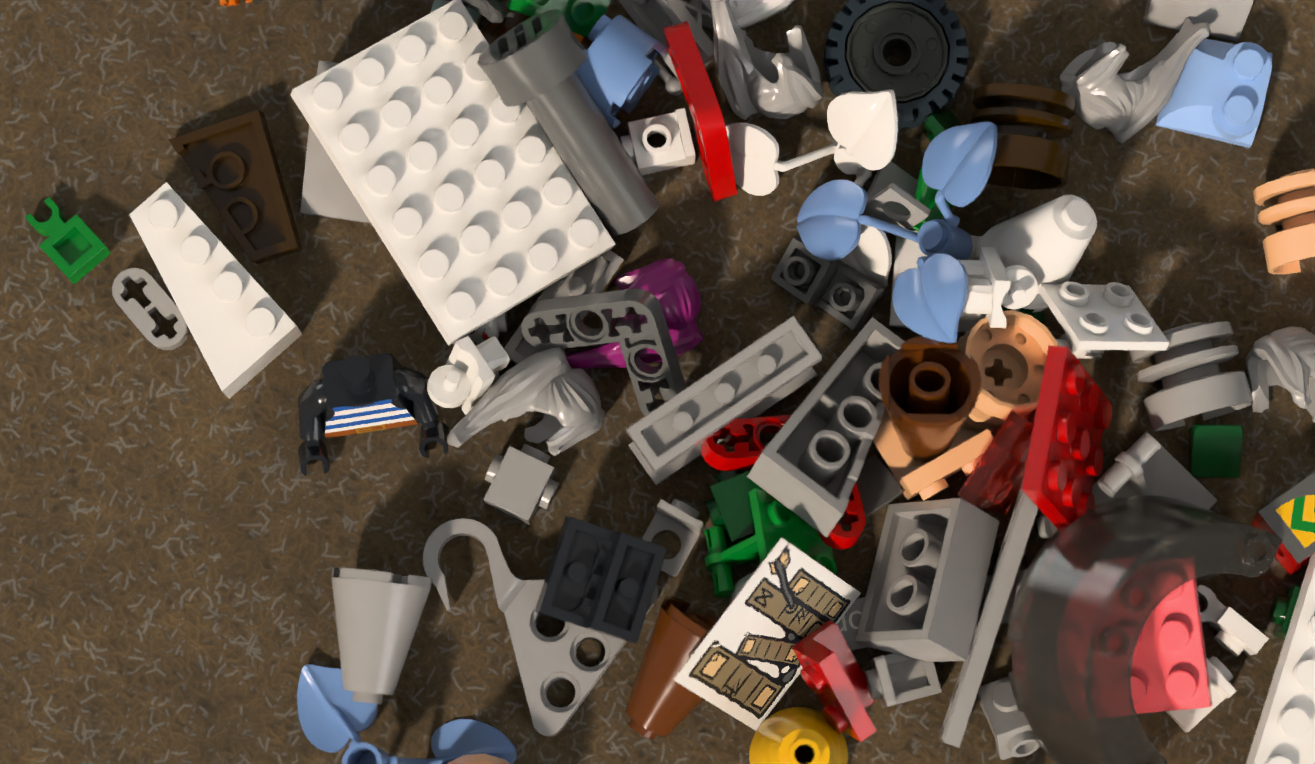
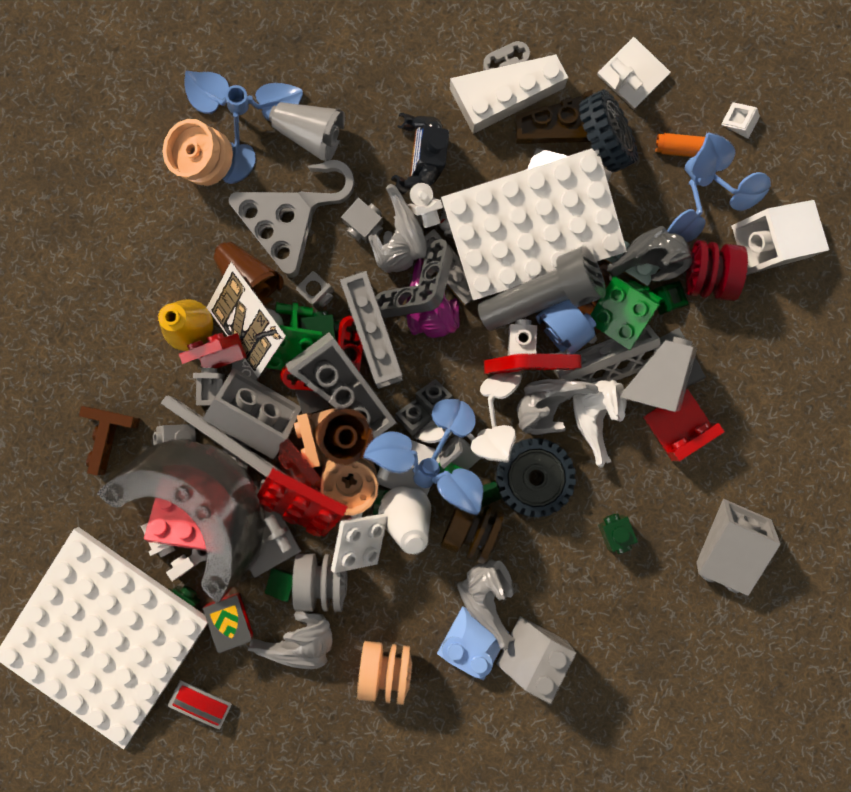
camera: 110 degrees right, 5 degrees up
(69, 244) = (550, 28): green plate -> none
(118, 75) = (633, 73): none -> white plate
(249, 83) = (608, 131): none -> black wheel
(601, 579) = (298, 244): black slope -> none
(994, 286) = (391, 486): white hips -> none

